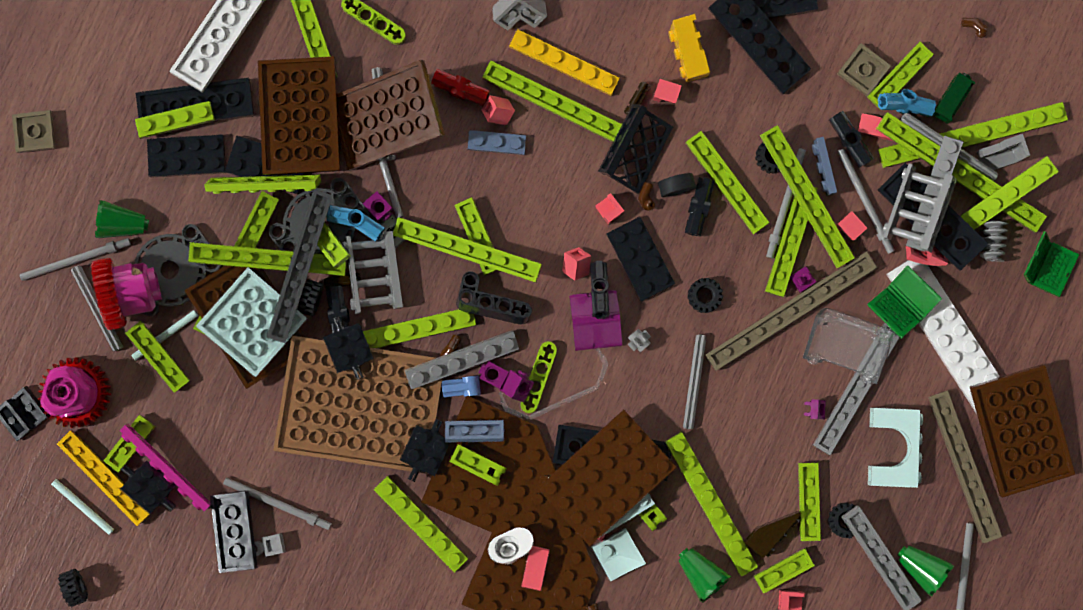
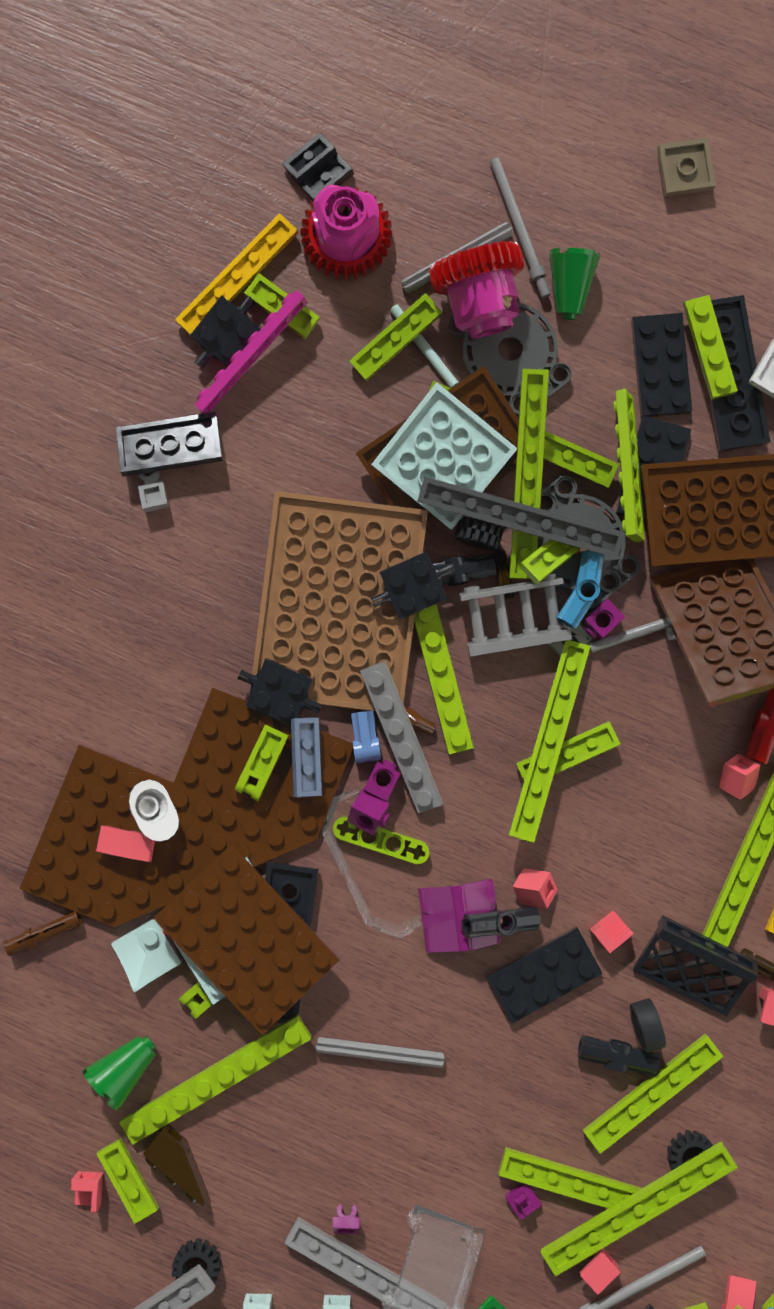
camera: 85 degrees right, 0 degrees up
(73, 587) = (93, 240): black tyre -> none
(82, 506) = (200, 249): light aqua bar -> none
(312, 519) = (188, 545): light grey bar -> none
(421, 524) = (183, 688): lime plate -> none
(493, 301) = (481, 777): black beam -> none
(496, 142) = (695, 775): sand blue plate -> none
(639, 340) = (434, 976): light grey gear -> none
(644, 197) = (626, 979): reddish brown arm -> none
(716, 292) = (497, 1081): black tyre -> none
(775, 237) = (579, 1161): light grey bar -> none
(791, 311) = (480, 1186): dark tan plate -> none
(809, 501) = (221, 1214): lime plate -> none
(824, 166) = (680, 1230): sand blue plate -> none
(844, 128) = (704, 1276): black piece -> none

